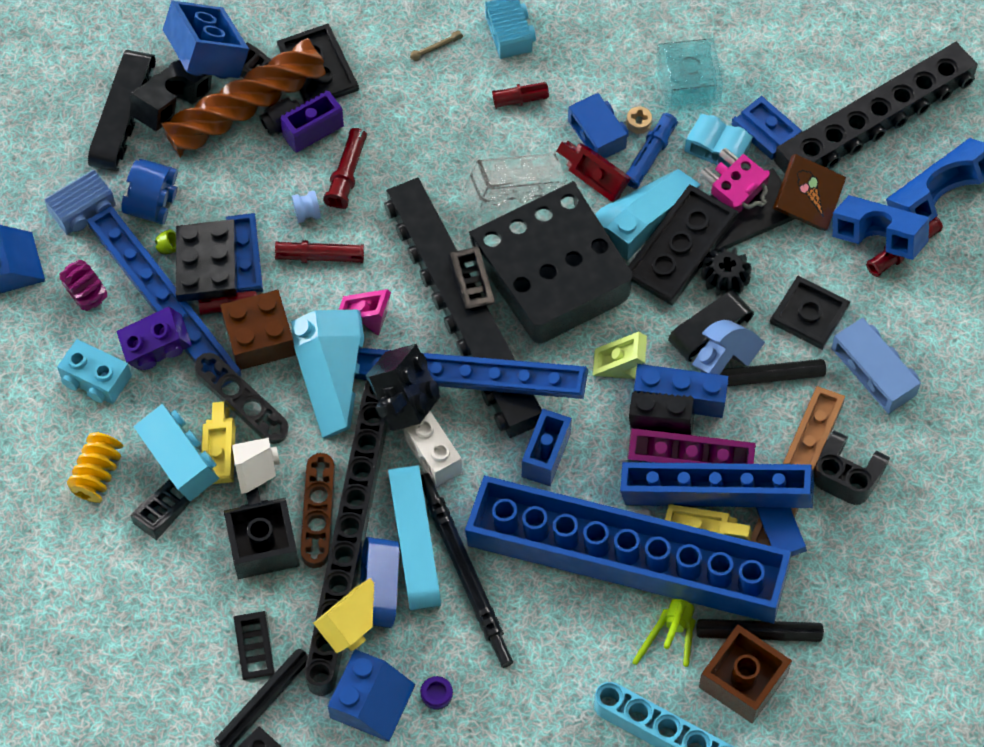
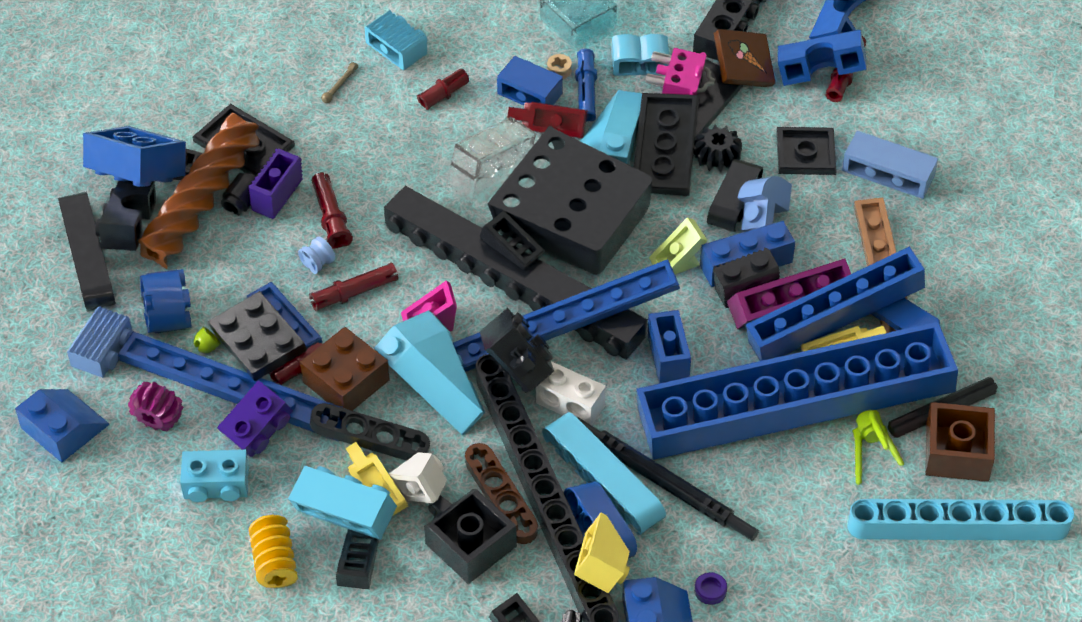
camera: 30 degrees left, 10 degrees down
(766, 126) = (674, 24): blue plate -> none
(775, 372) = (816, 204): black axle -> none
(847, 472) = (935, 256): black piece -> none

